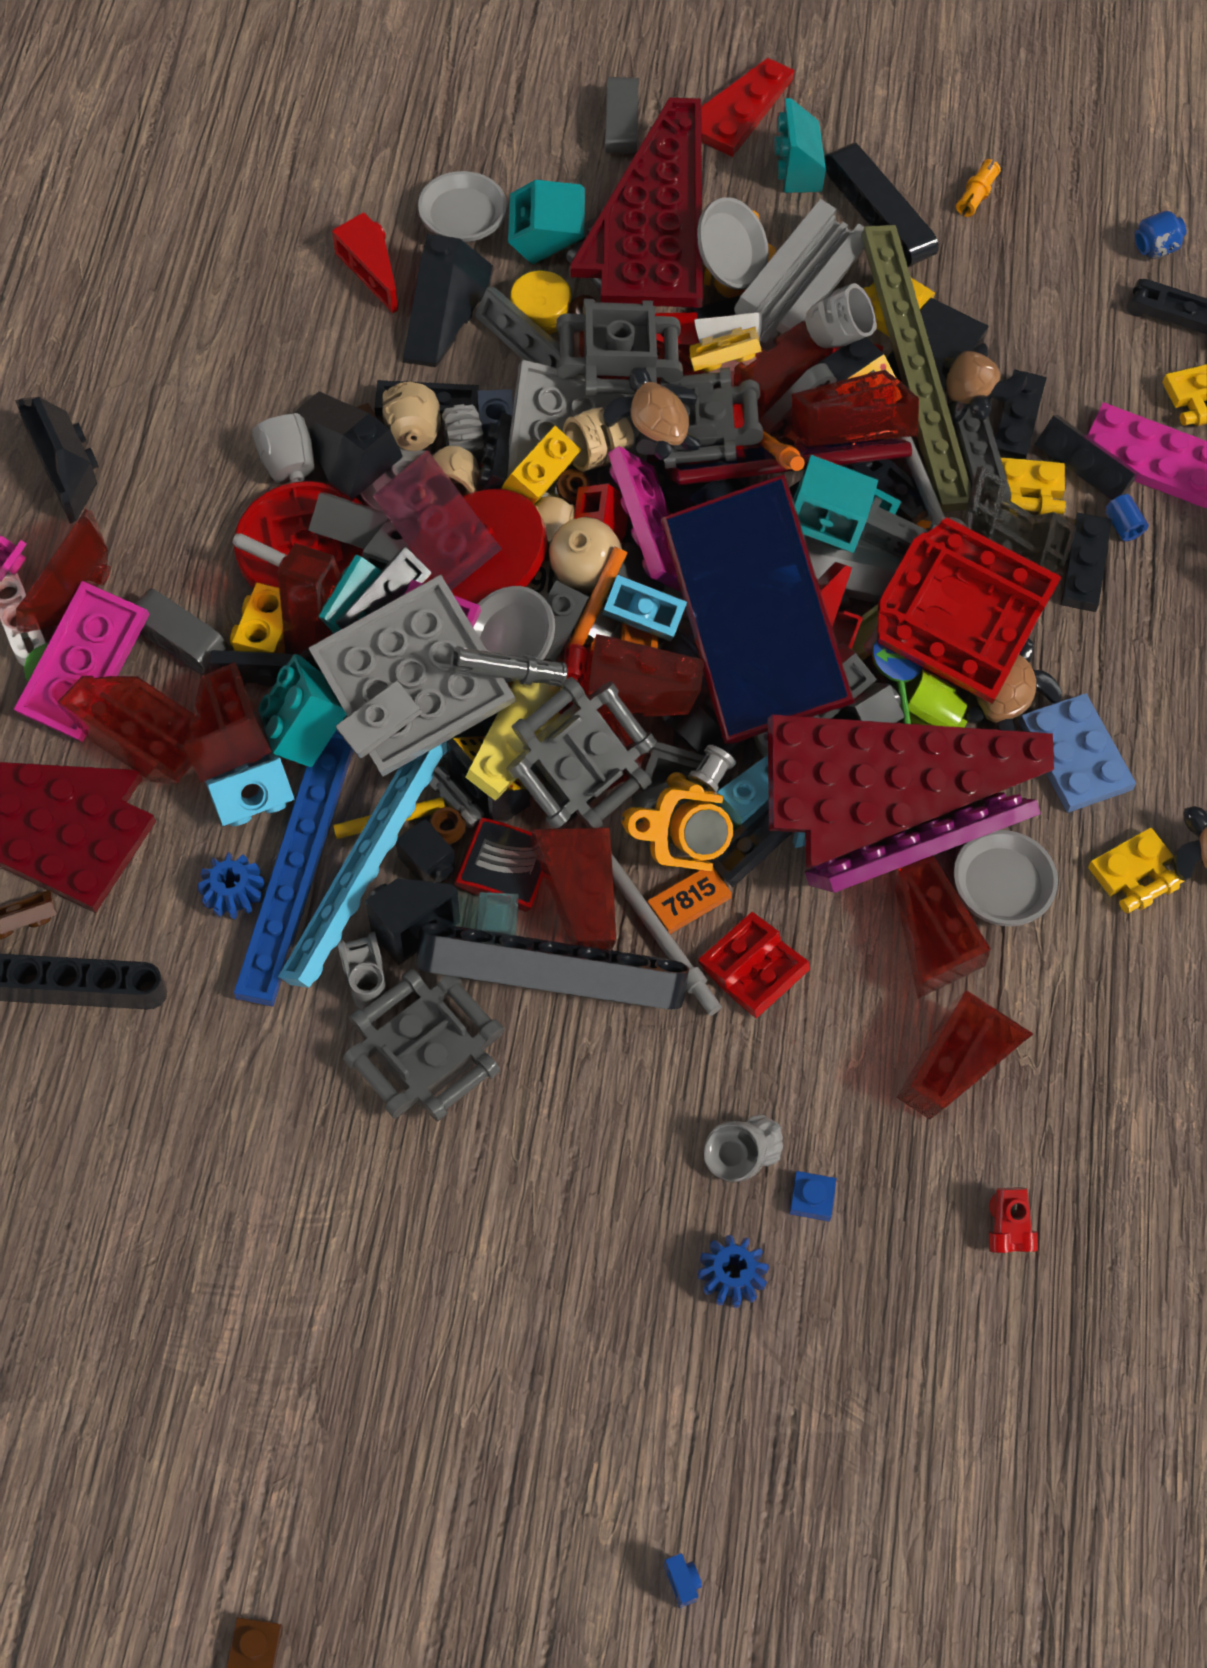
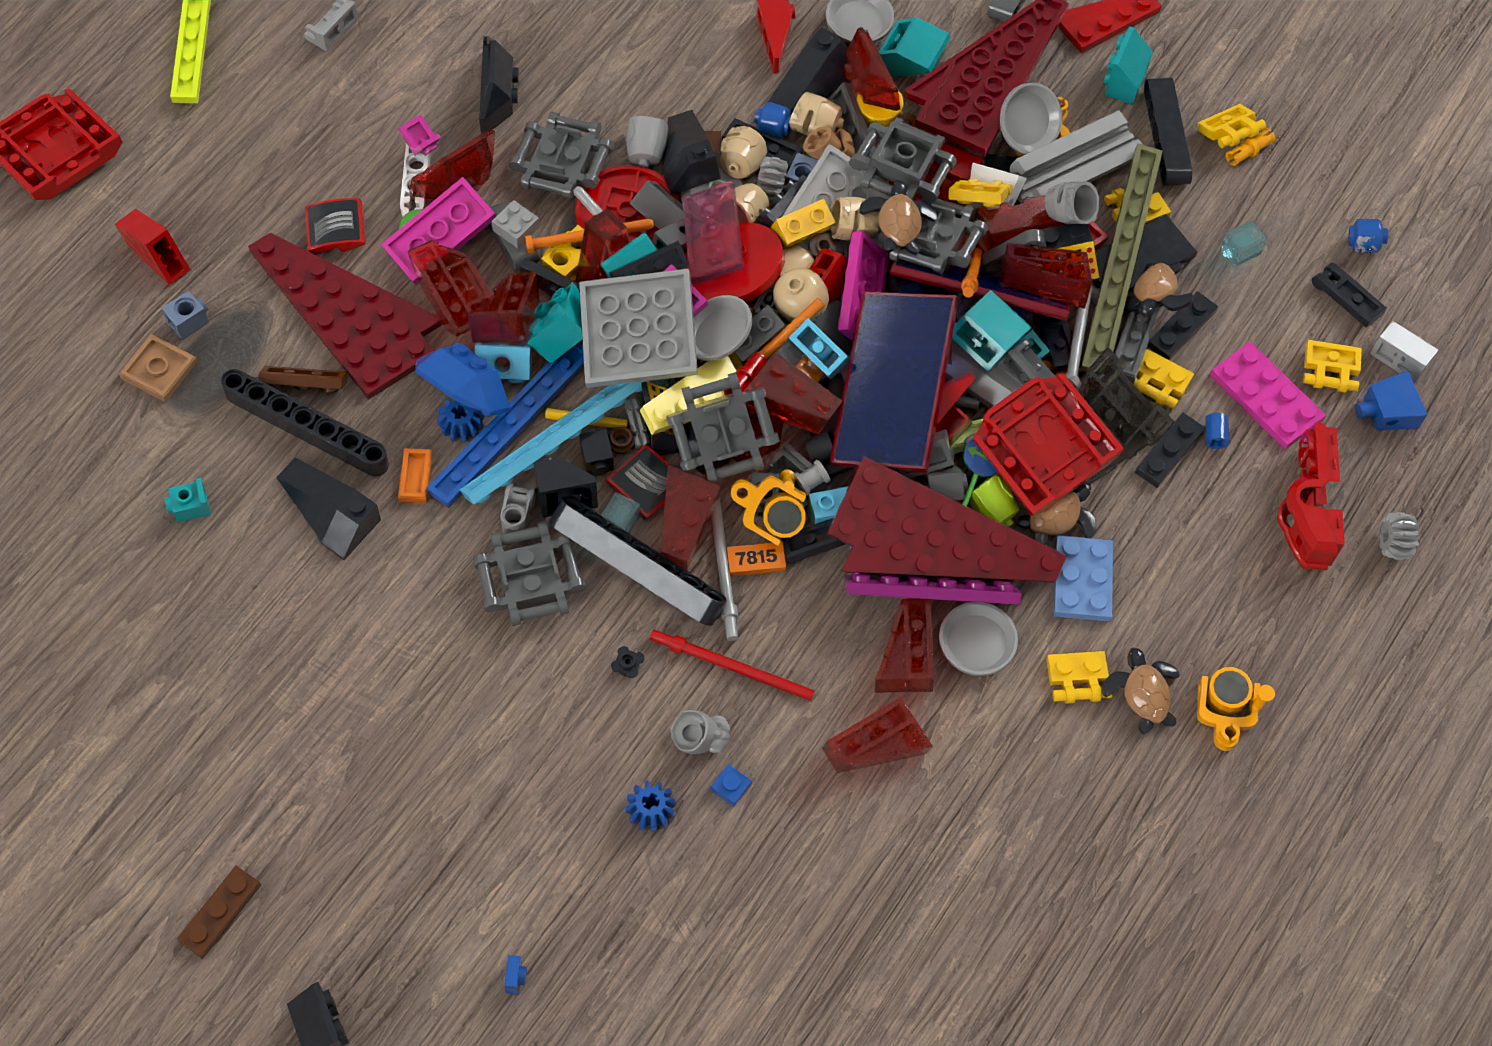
camera: 25 degrees right, 0 degrees up
(123, 1075) = (330, 507): none -> black wedge
(178, 612) = (515, 224): none -> light grey piece
(189, 507) = (561, 155): none -> dark grey brick
(208, 984) = (415, 475): none -> orange tile
(213, 628) = (577, 236): none -> orange bar
(214, 831) = (464, 378): none -> blue wedge
(378, 719) = (600, 348): light grey plate -> none
(427, 363) = (773, 119): none -> blue head
(476, 340) = (815, 112): none -> tan helmet
(501, 363) = (823, 136): none -> medium nougat piece
(518, 263) = (869, 73): none -> clear red wedge
(521, 668) = (710, 354): dark grey pin -> none
(604, 1111) = (627, 670): none -> black plate
(655, 1048) = (679, 644): none -> red bar
(754, 964) = (775, 620): red slope -> none
(942, 171) = (1224, 126): none -> yellow plate
(1013, 1231) = (851, 869): red plate -> none
(1034, 296) = (1243, 243): none -> clear light blue brick
(1086, 458) = (1211, 376): black plate -> none

